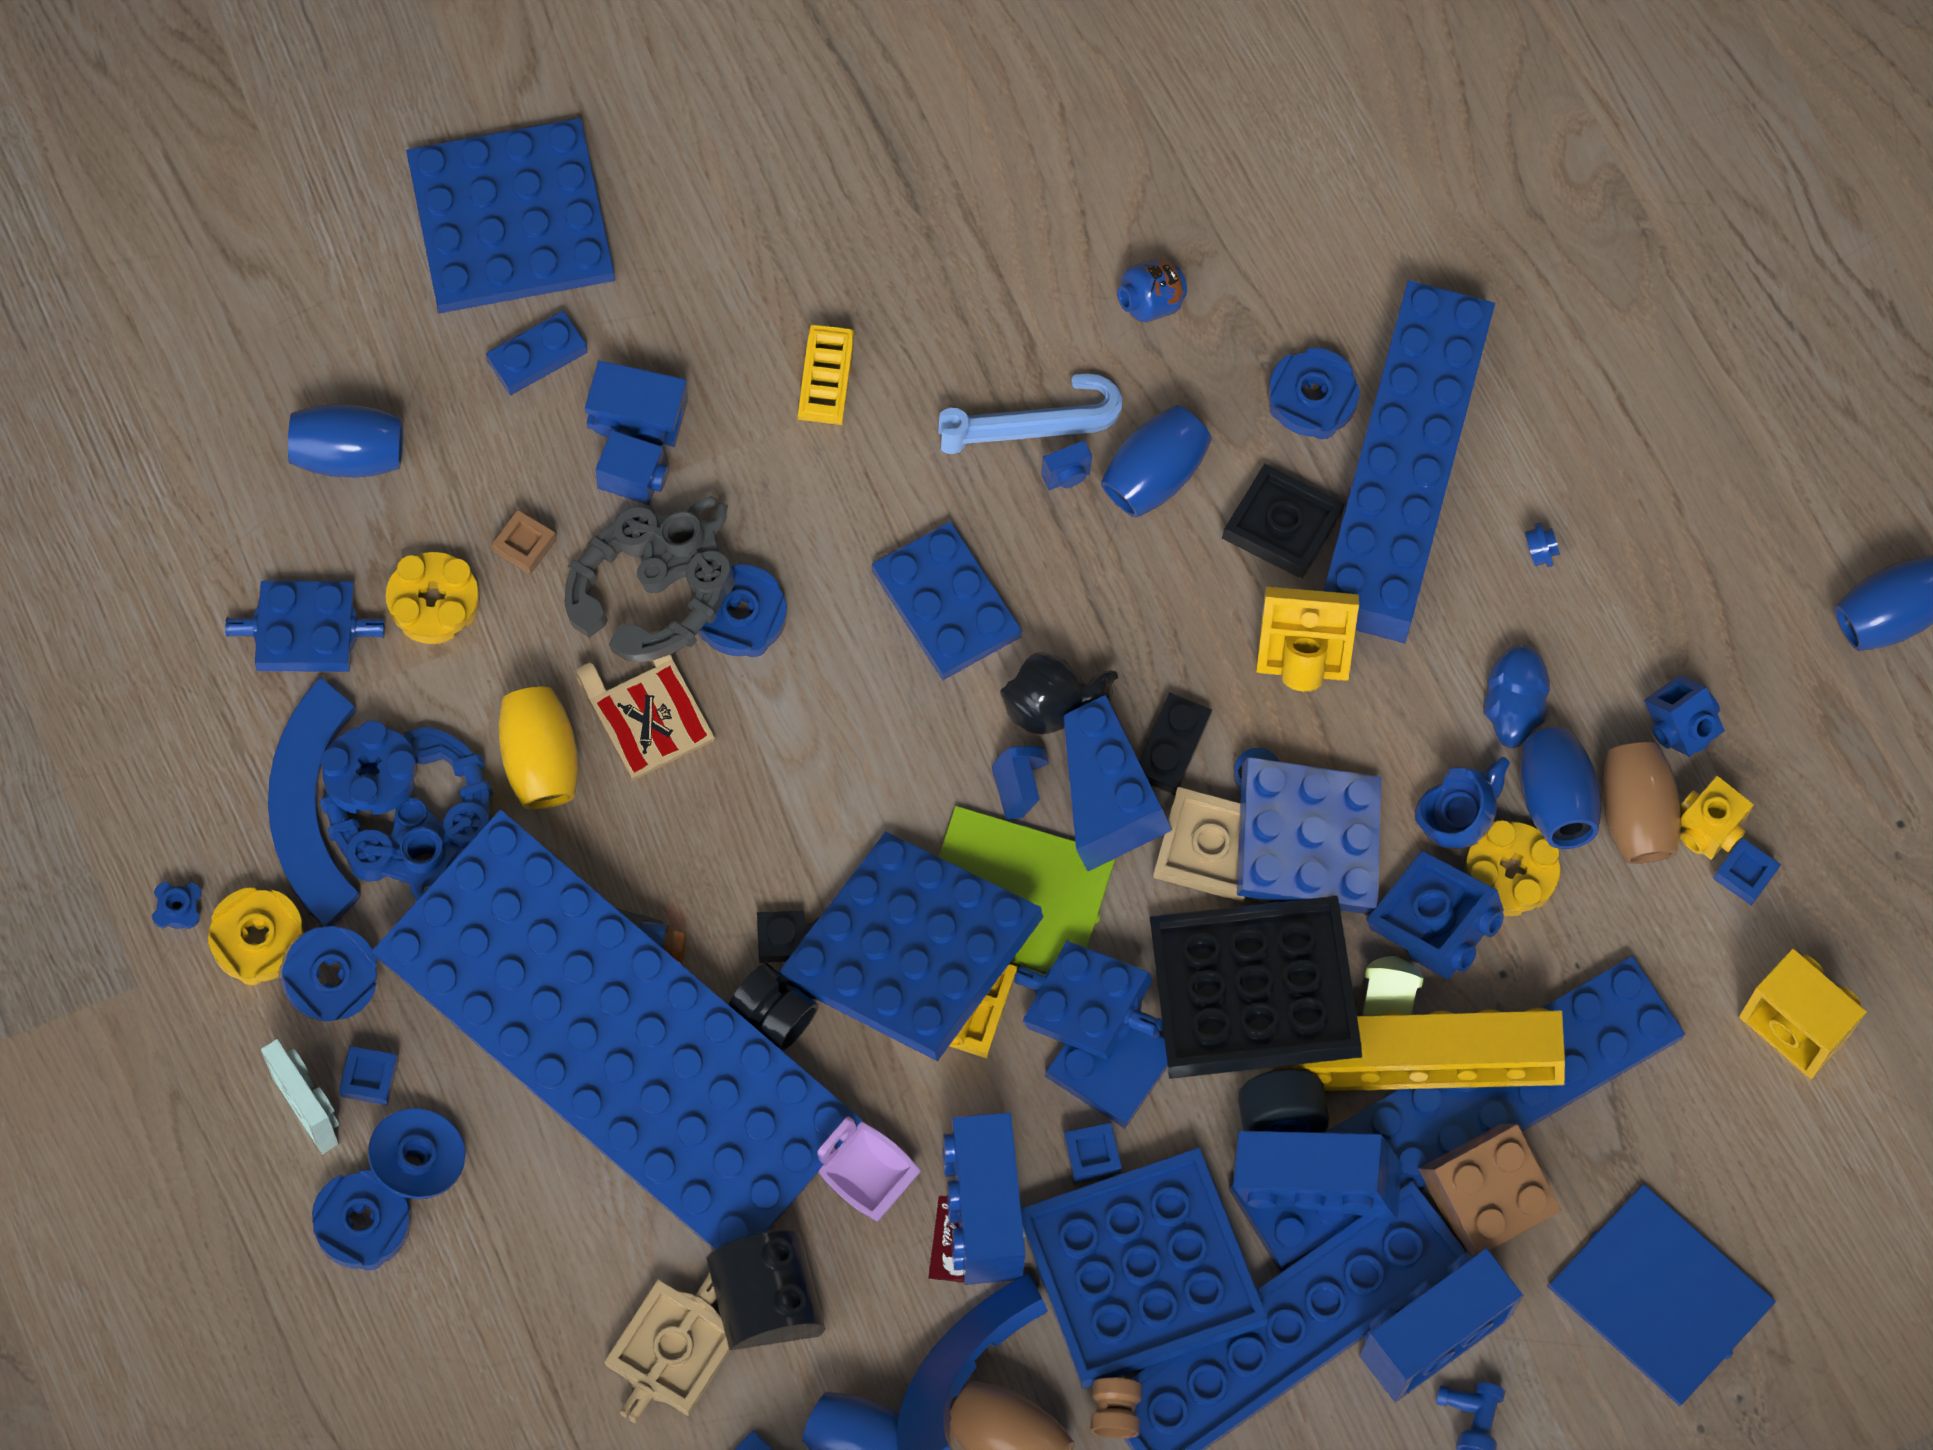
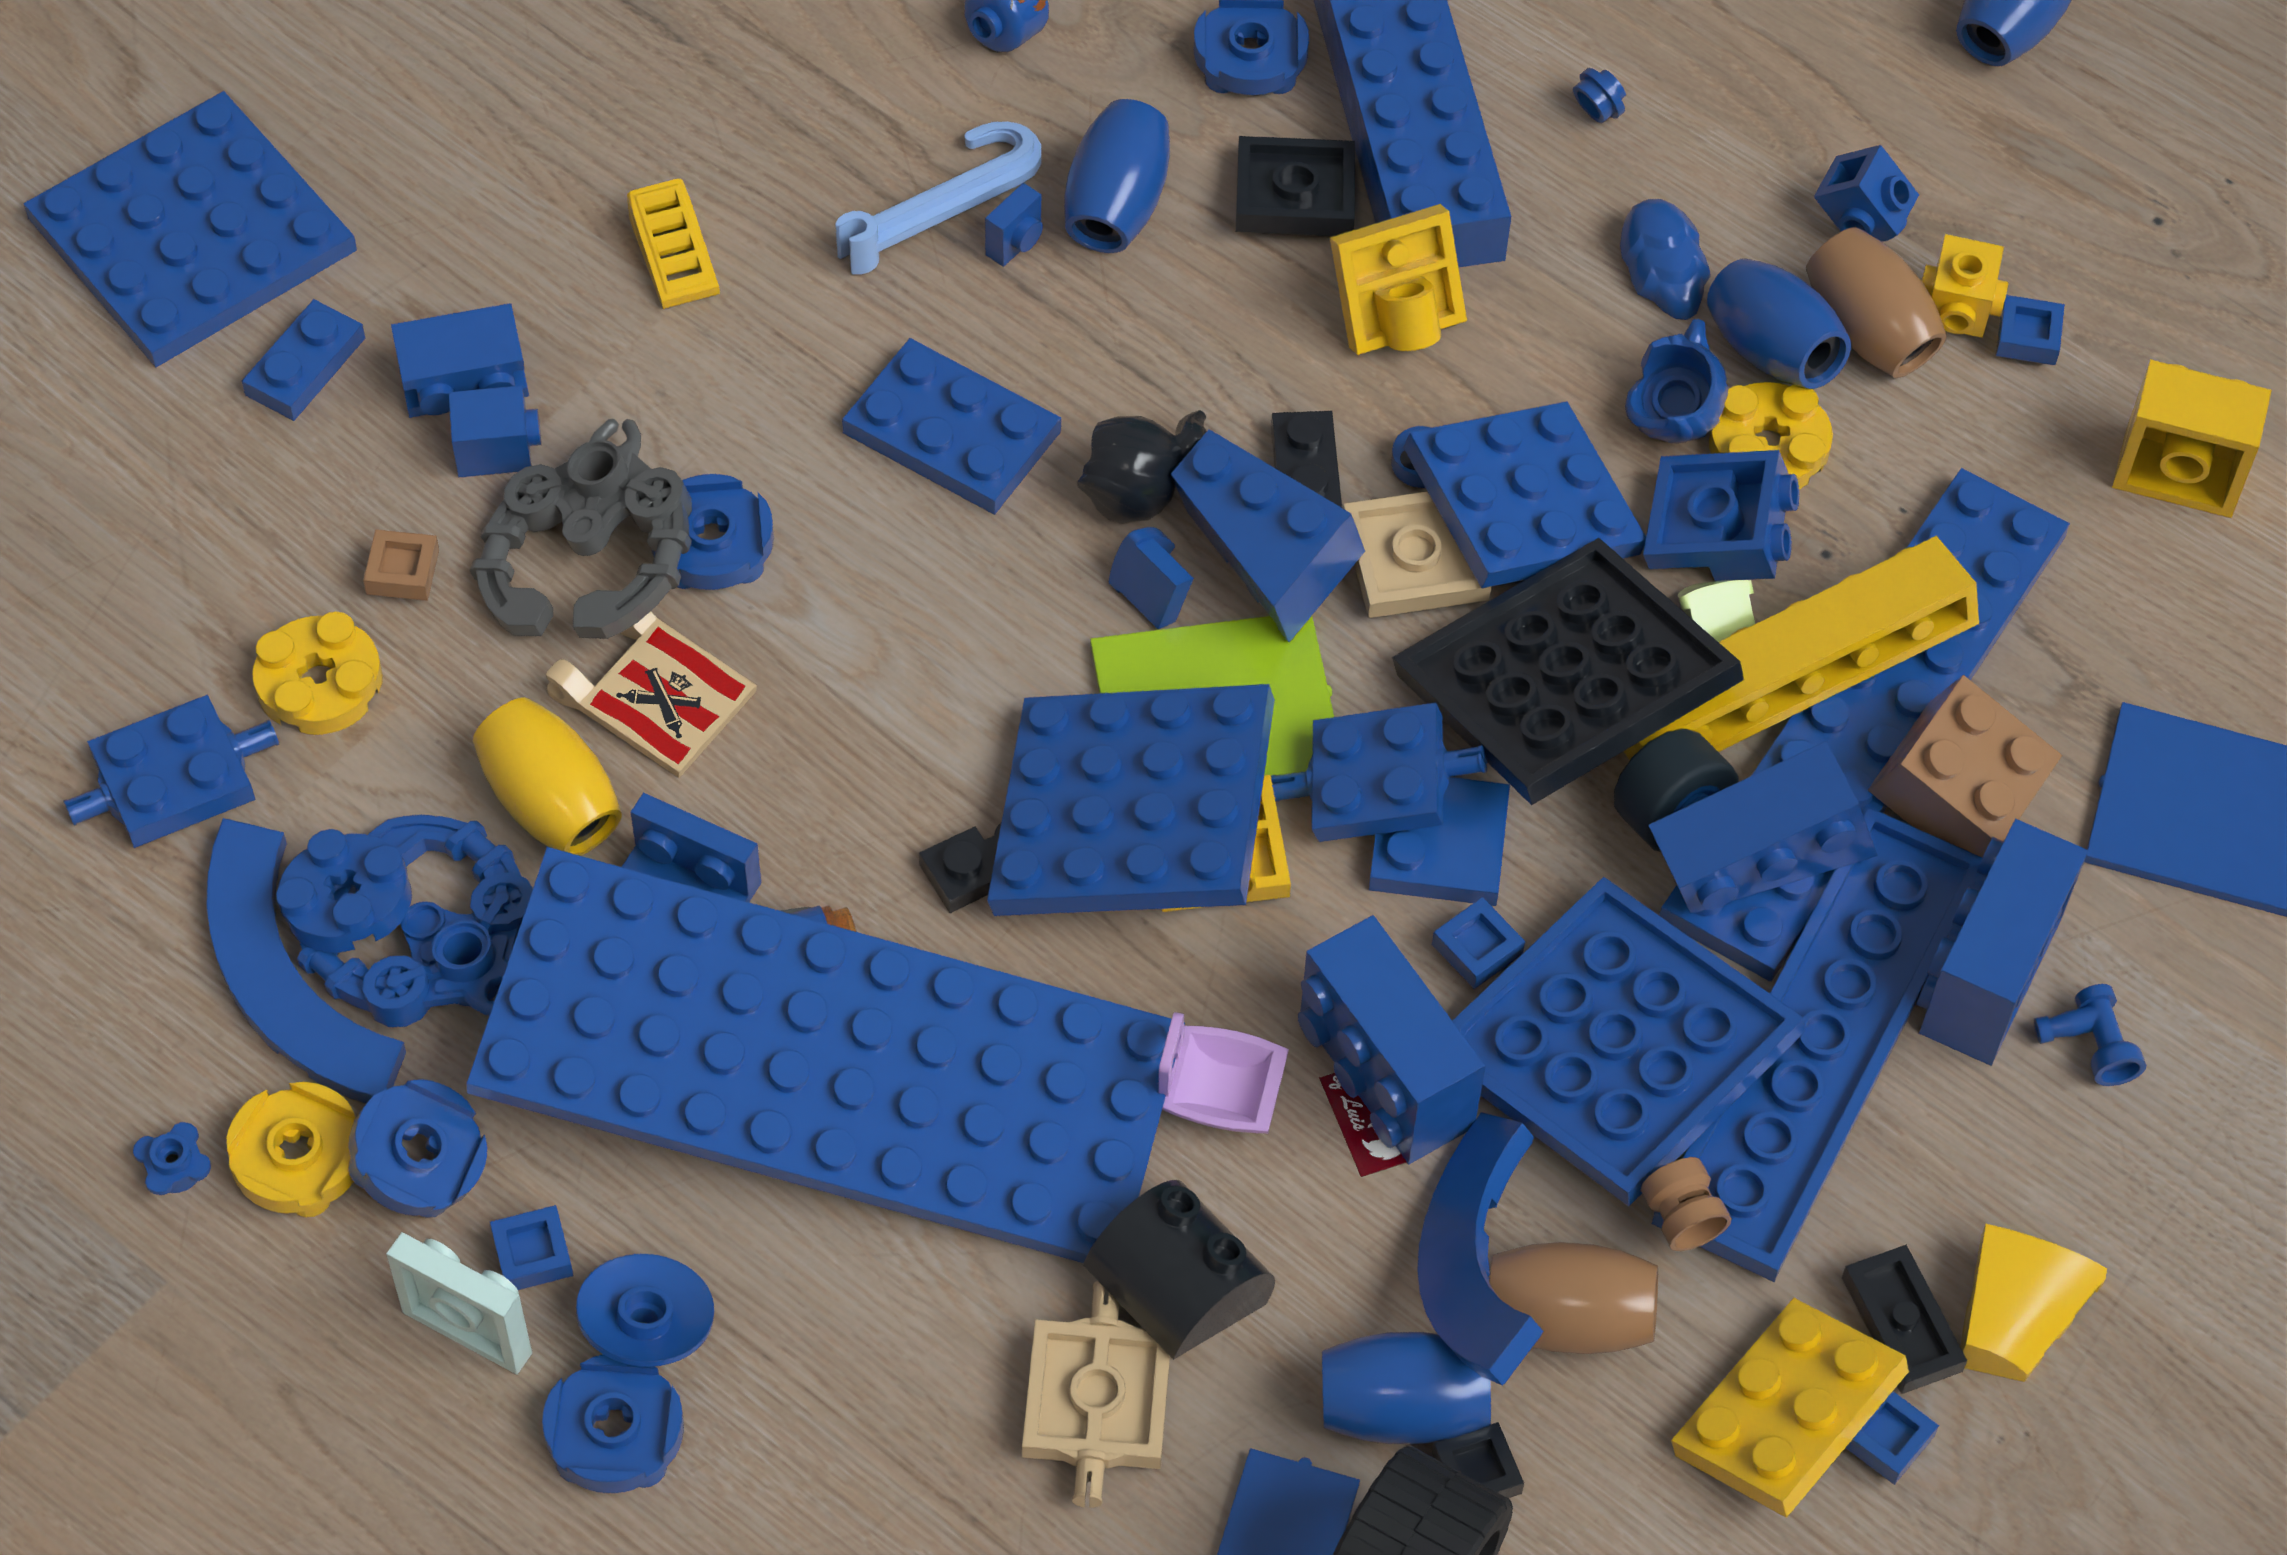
camera: 25 degrees left, 10 degrees down
(345, 440) = (116, 538): blue piece -> none
(599, 853) = (692, 851): none -> blue bracket
(774, 1008) = (1001, 942): black wheel -> none

